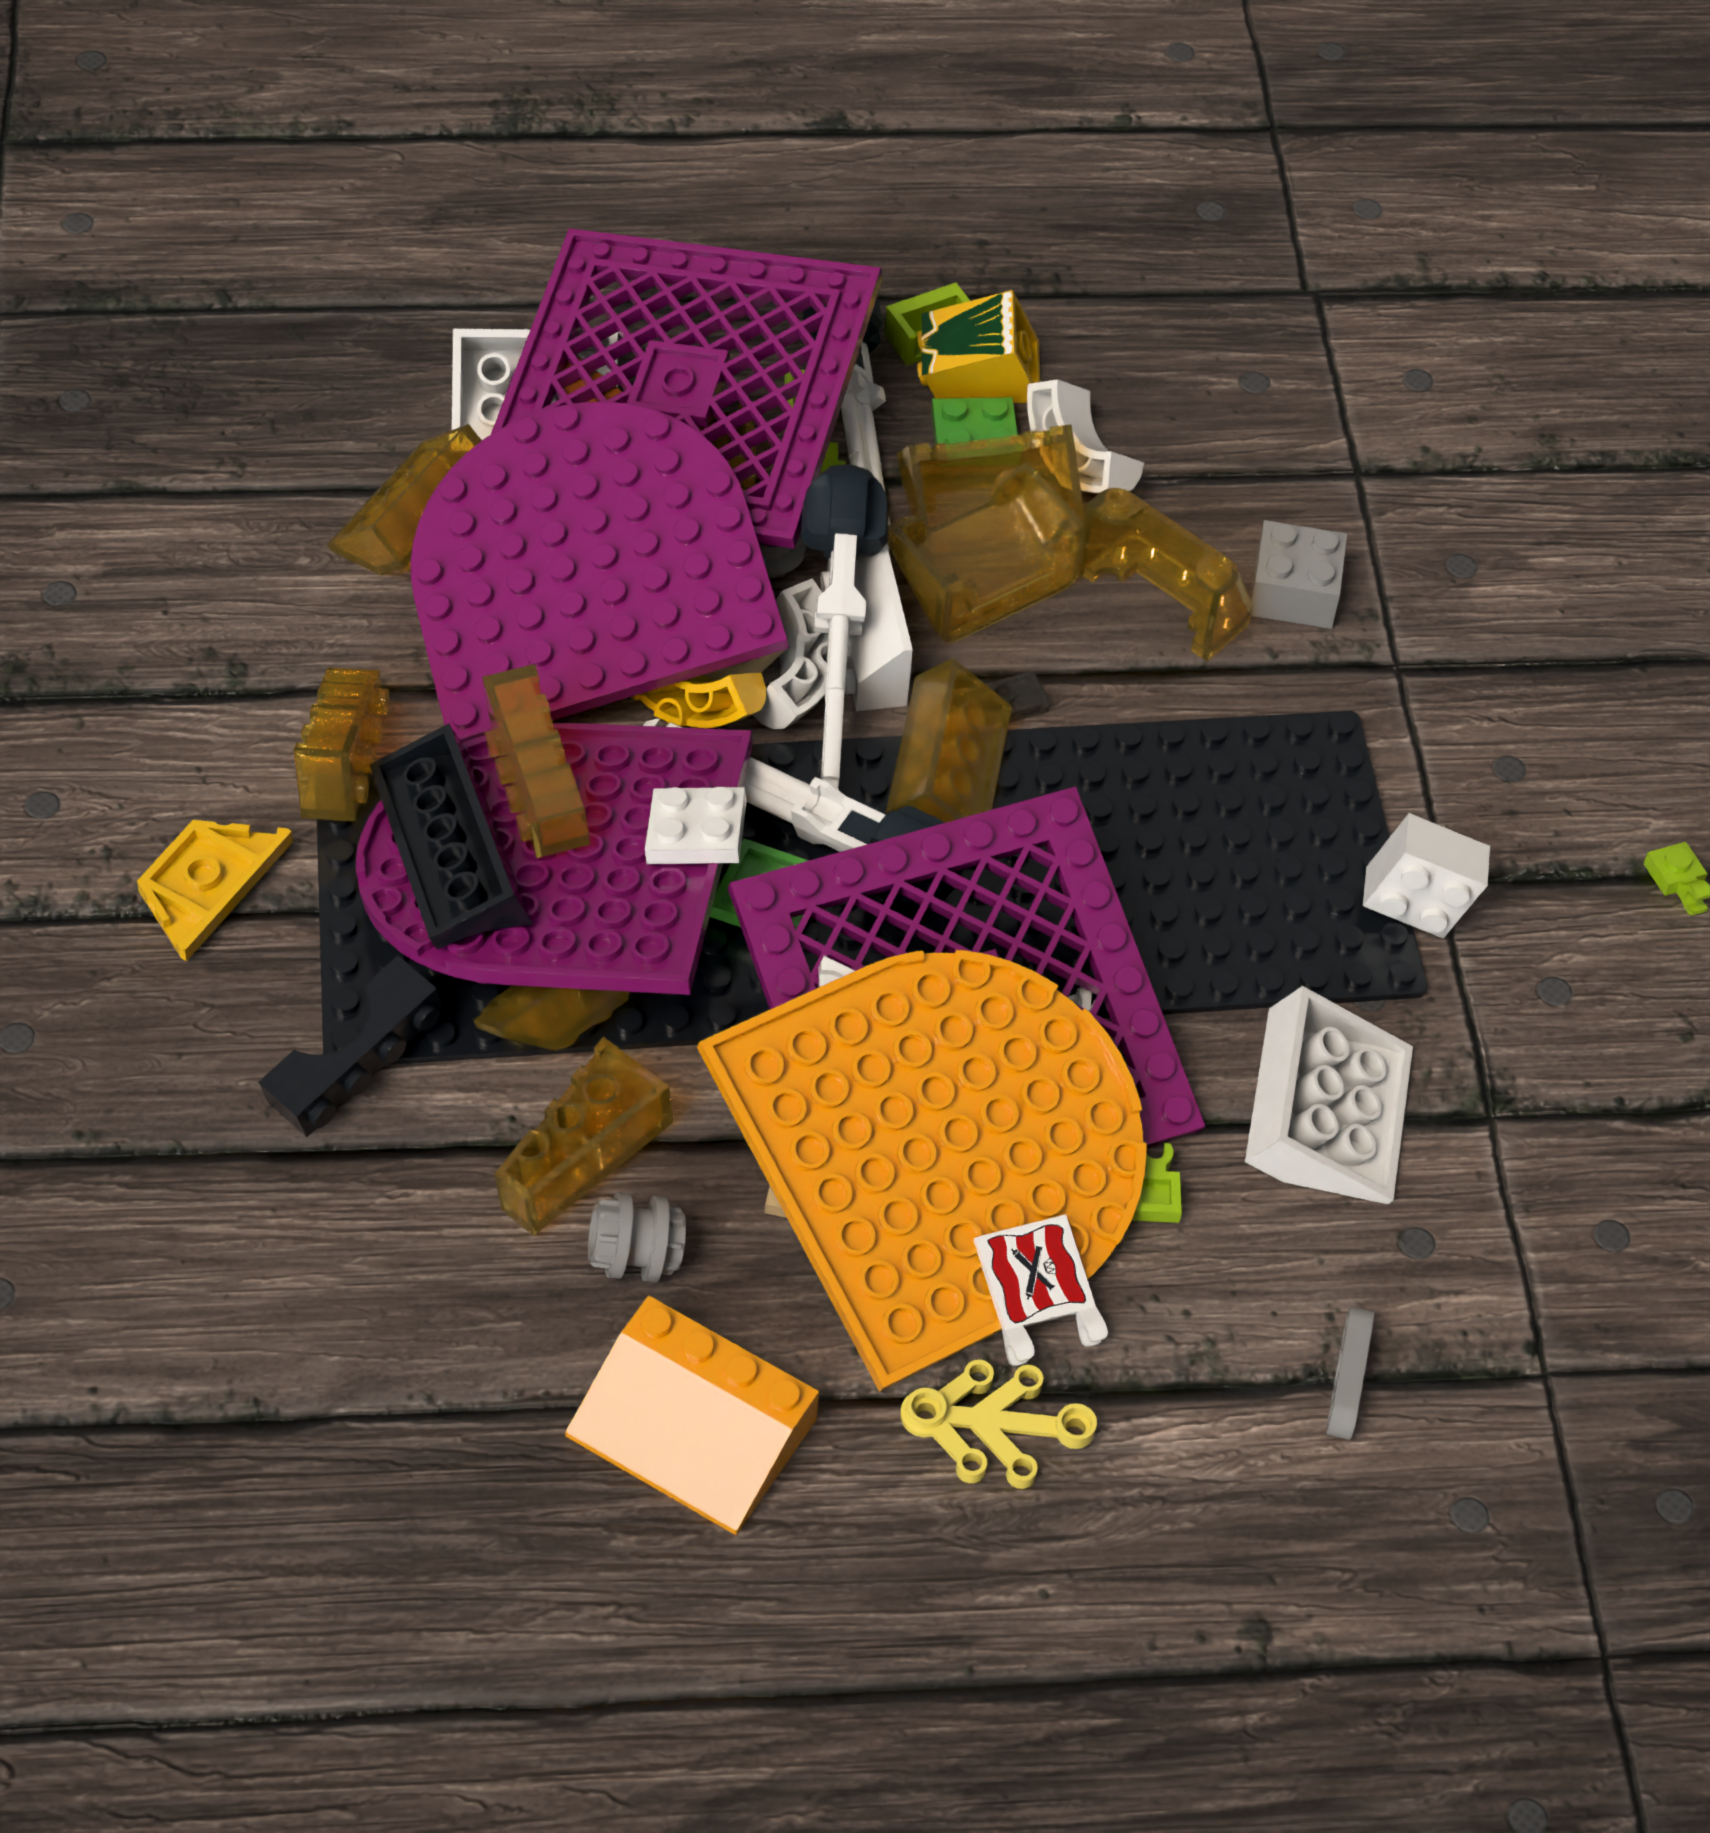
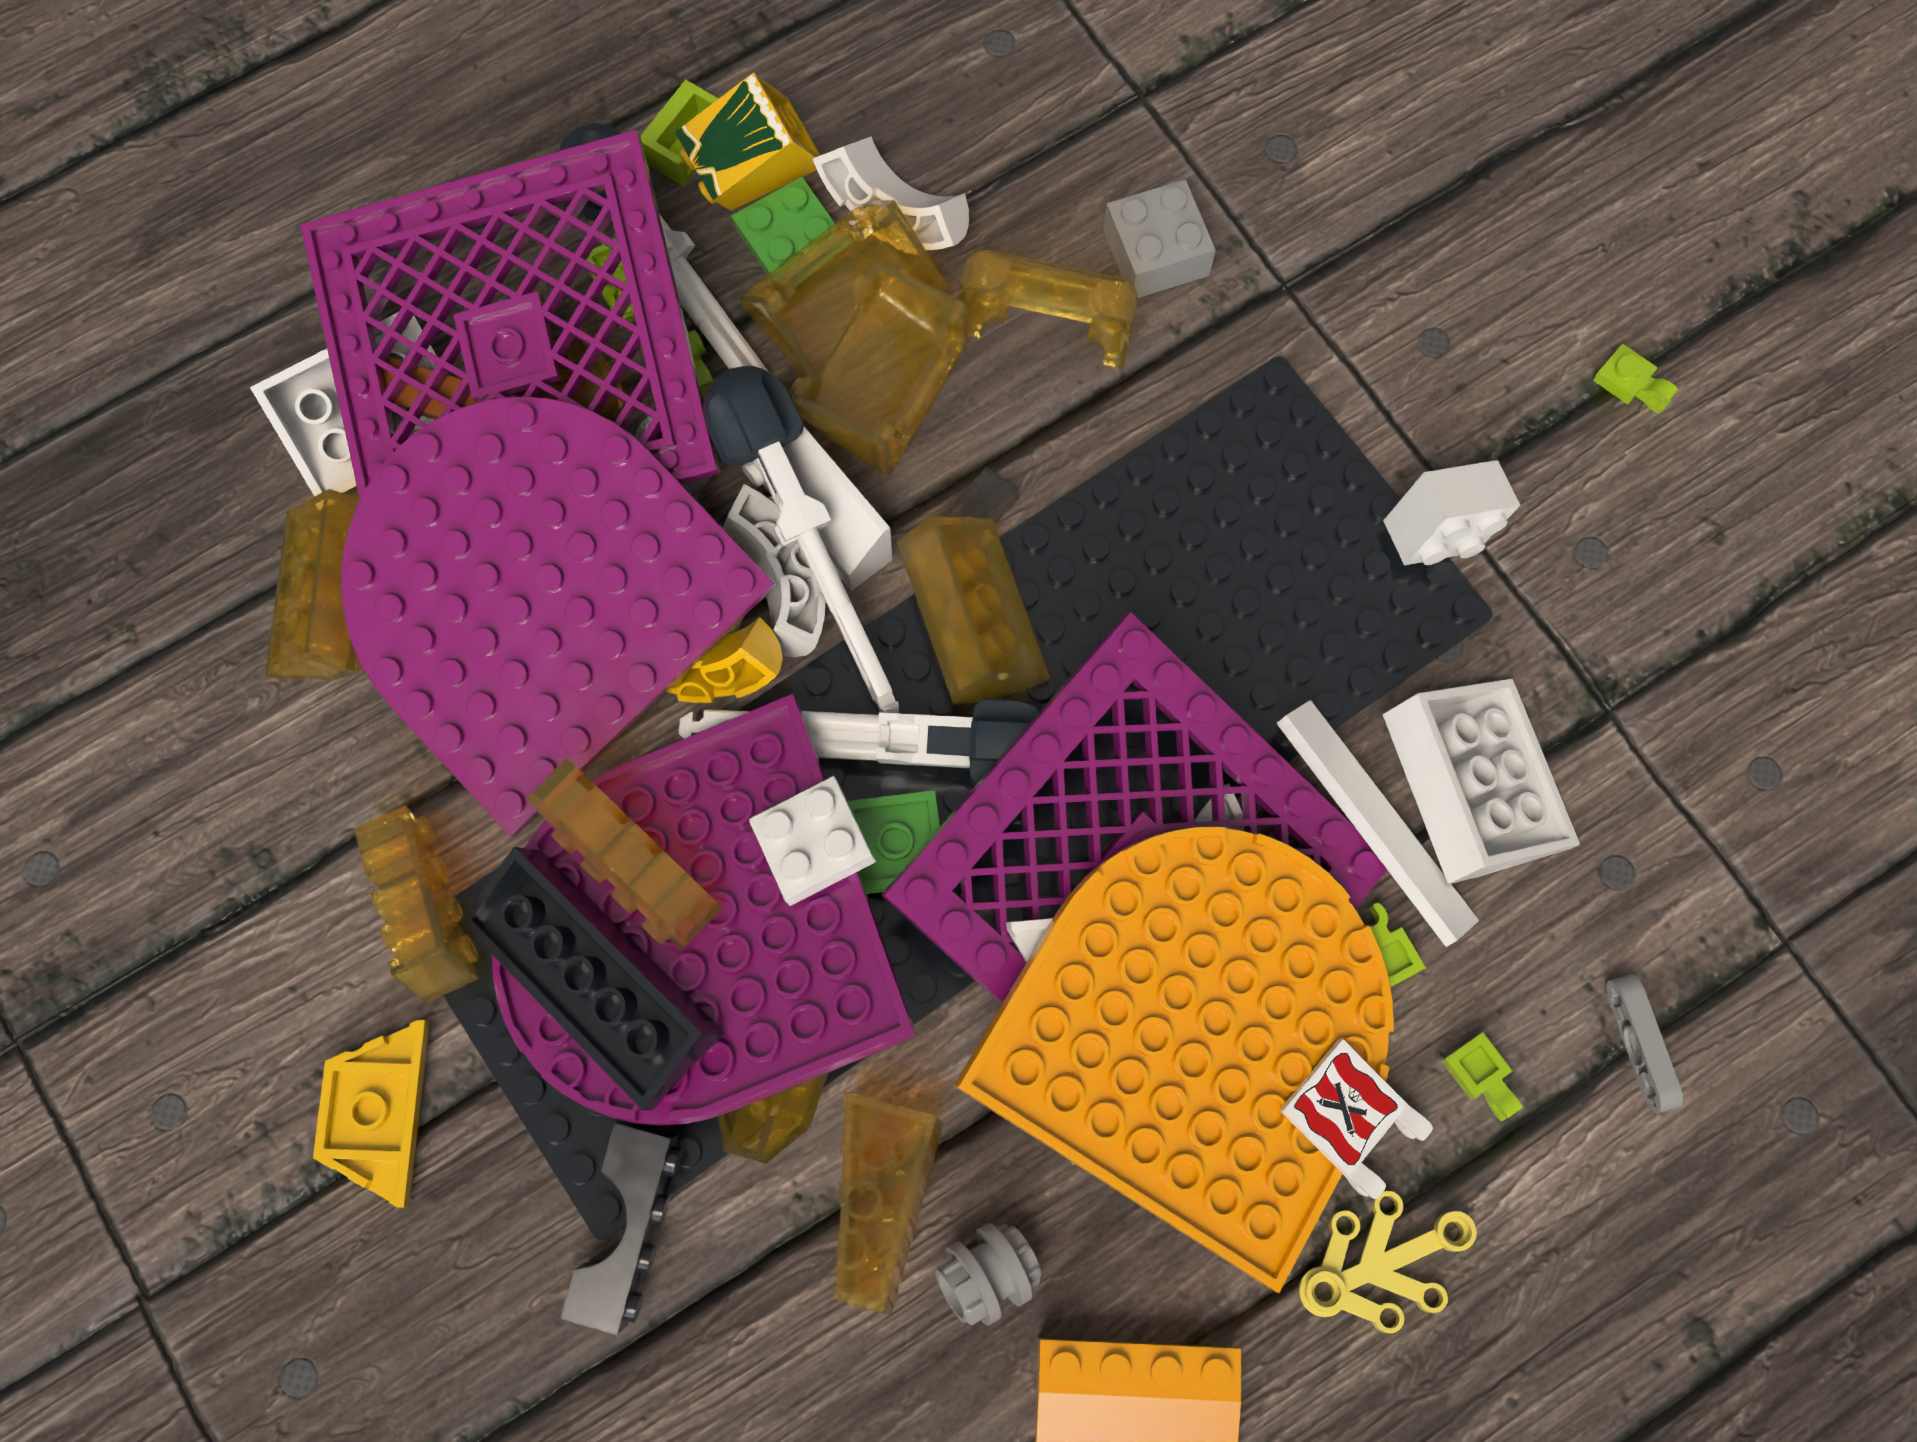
camera: 25 degrees left, 20 degrees up
(1182, 1318) = (1480, 1070): none -> lime plate
(1210, 1085) = (1378, 823): none -> white tile

